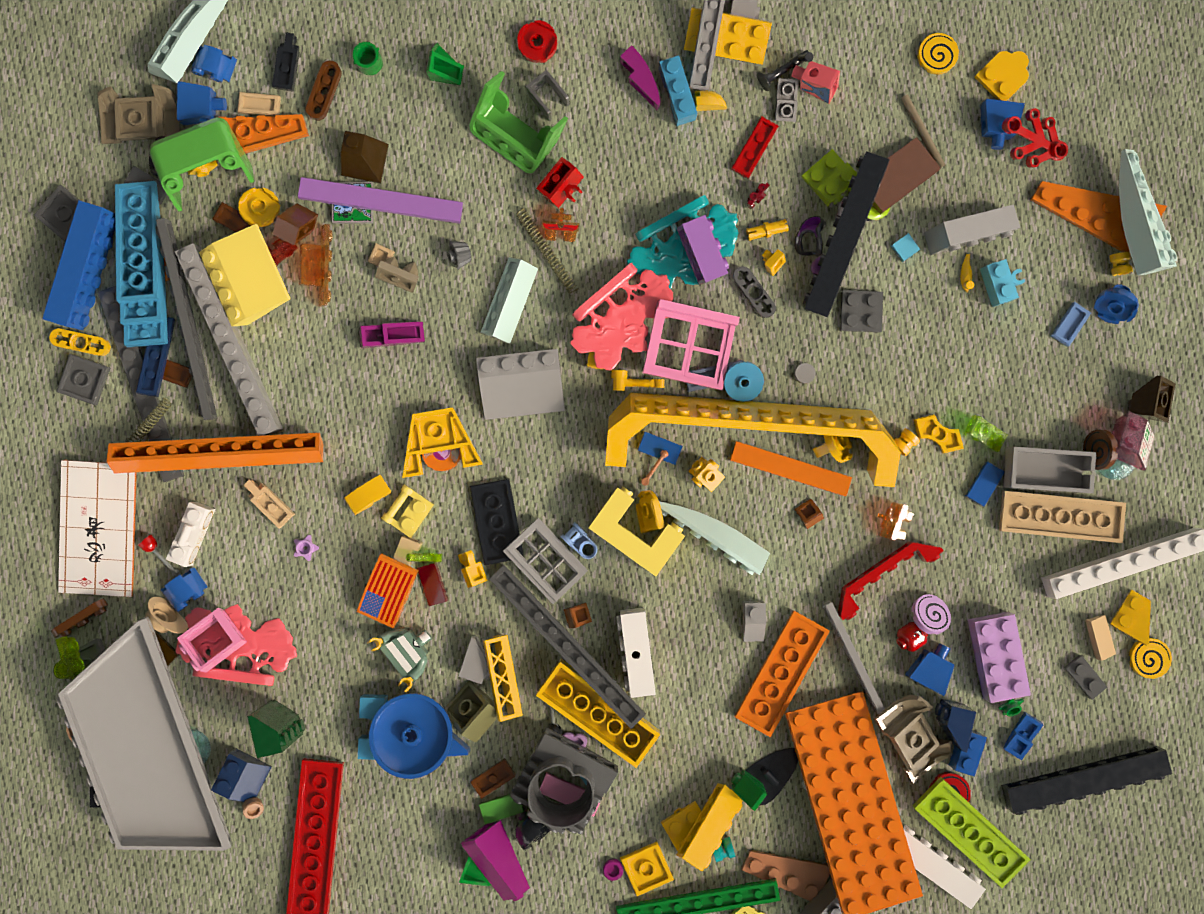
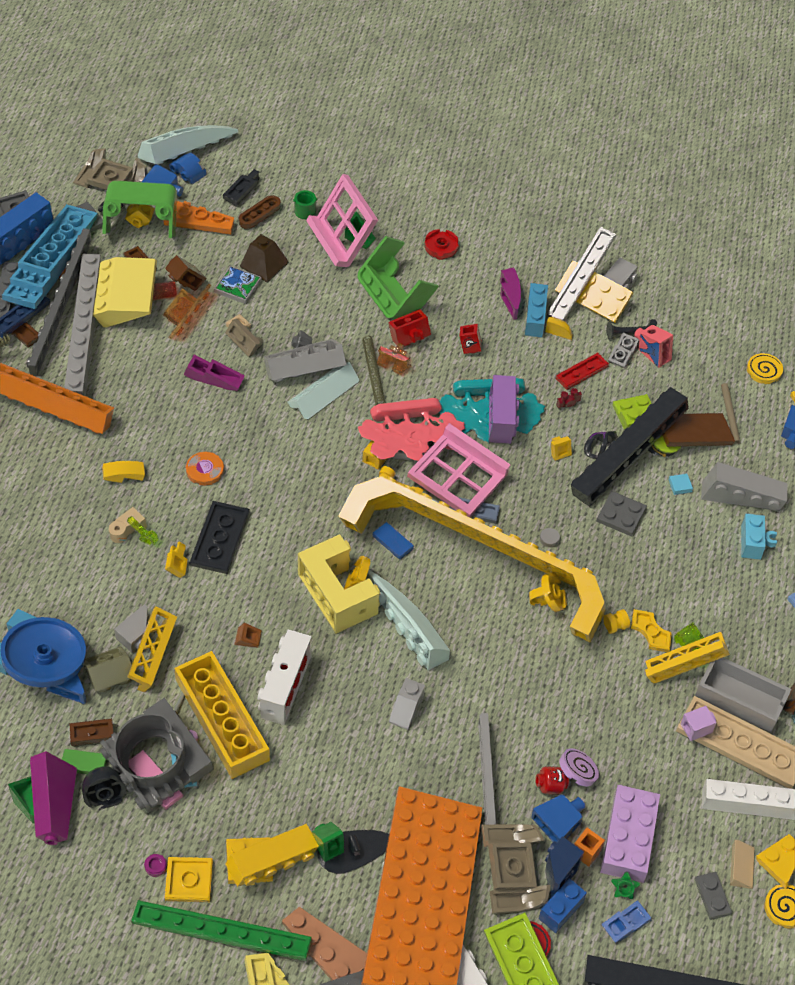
camera: 25 degrees right, 35 degrees down
(258, 104) = (199, 199): tan tile -> none
(259, 206) = (162, 255): yellow tile -> none
(269, 503) = (38, 445): tan hinge -> none
(300, 548) = (45, 485): lavender plate -> none
(380, 200) = (261, 289): medium lavender tile -> none
(387, 591) = (95, 541): slope -> none
(405, 652) = (78, 593): sand green torso -> none
(412, 516) = (153, 502): light yellow plate -> none
(417, 93) = (328, 237): none -> bright pink window
(432, 584) = (136, 558): dark red slope -> none
(434, 433) = (207, 448): yellow wing -> none
(475, 277) = (304, 360): none -> light grey wedge
(520, 384) = (300, 445): light grey slope -> none
(526, 567) = (227, 585): light grey piece -> none
(541, 80) = (435, 267): flat silver piece -> none
(568, 647) = (227, 646): dark grey plate -> none
(579, 540) = (283, 577): light blue piece -> none
(627, 166) = (470, 338): none -> red brick
(645, 481) = (394, 542): nougat hinge -> none
(706, 474) = (423, 569): yellow brick -> none
(719, 853) = (273, 890): teal wheel -> none
(739, 372) = (495, 508): dark azure plate -> none
(750, 276) = (535, 457): dark grey beam -> none
(767, 229) = (565, 426): yellow pin -> none
(781, 673) = (410, 760): orange plate -> none
(791, 468) = (502, 603): orange tile -> none
(809, 513) = (502, 645): dark orange slope -> none
(848, 607) = (598, 715): red slope -> none
(893, 520) = (573, 686): clear orange hips -> none
(966, 274) = (727, 523): yellow bar -> none
(969, 689) = (590, 844): none -> orange brick
(985, 484) = (677, 687): blue tile -> none
(994, 466) = (688, 660): none -> yellow fence
(1023, 524) = (698, 723): none -> lavender brick

